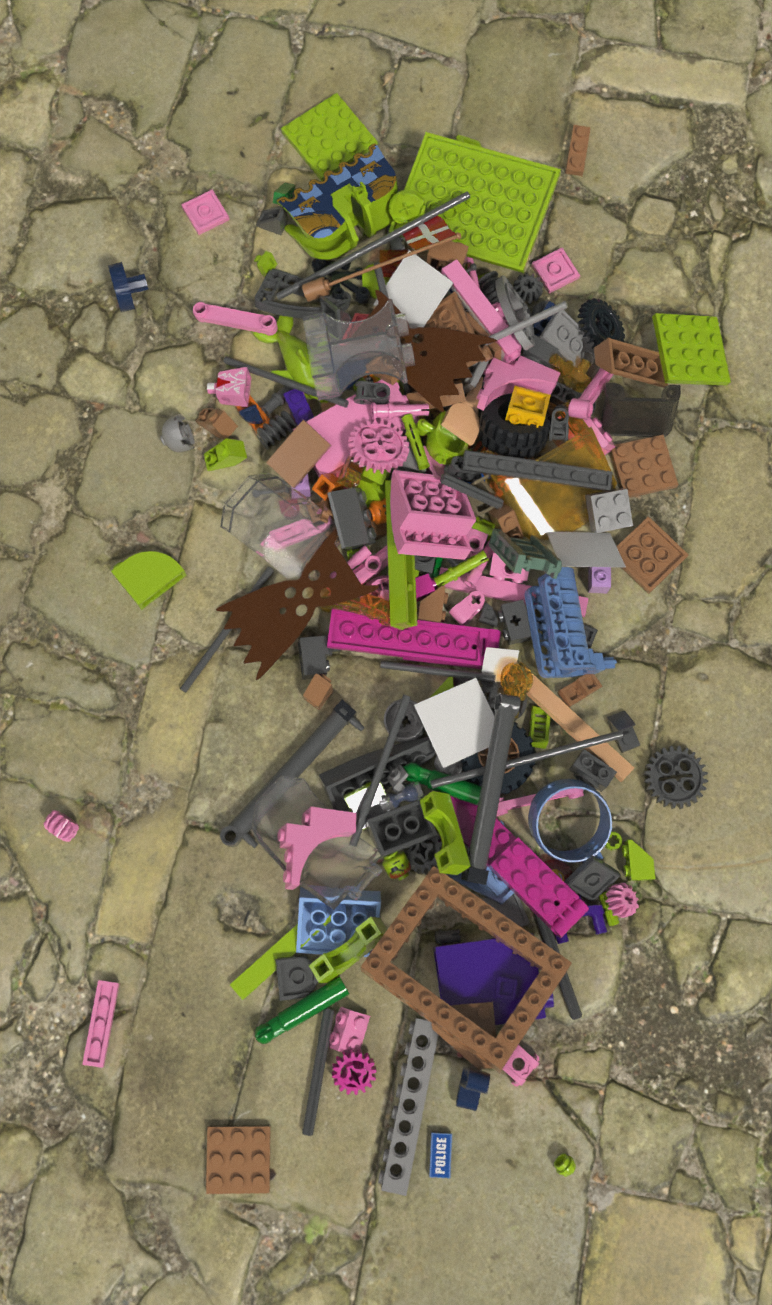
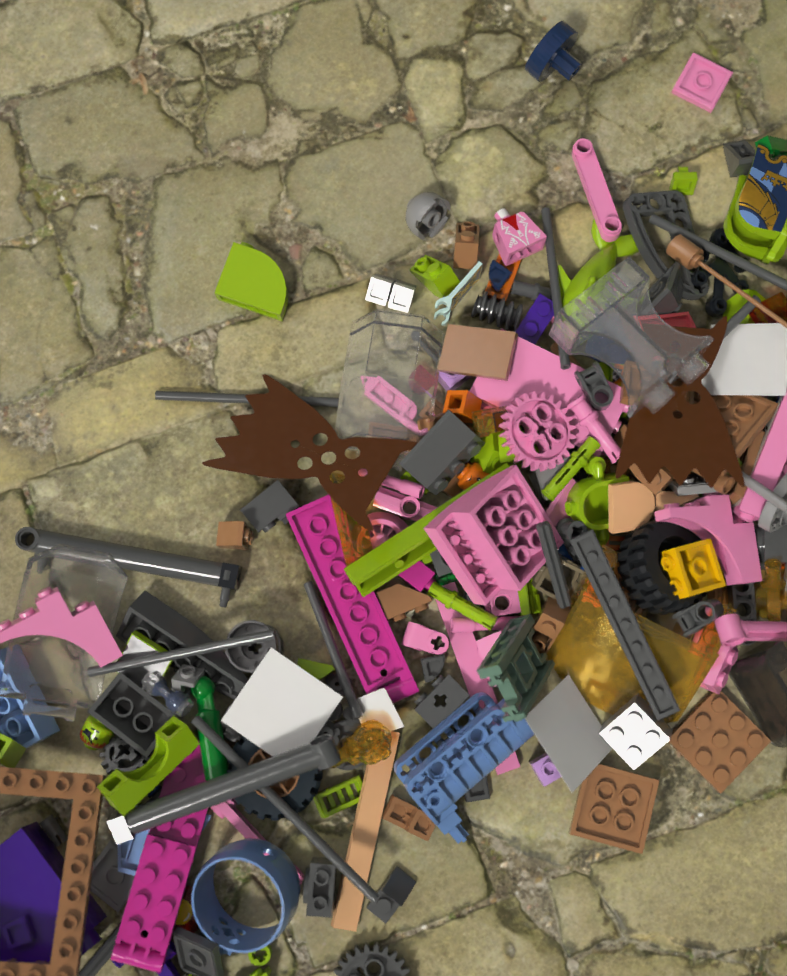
camera: 65 degrees right, 5 degrees up
(222, 483) = (386, 289): none -> white hips
(250, 452) = (458, 293): none -> light aqua flag

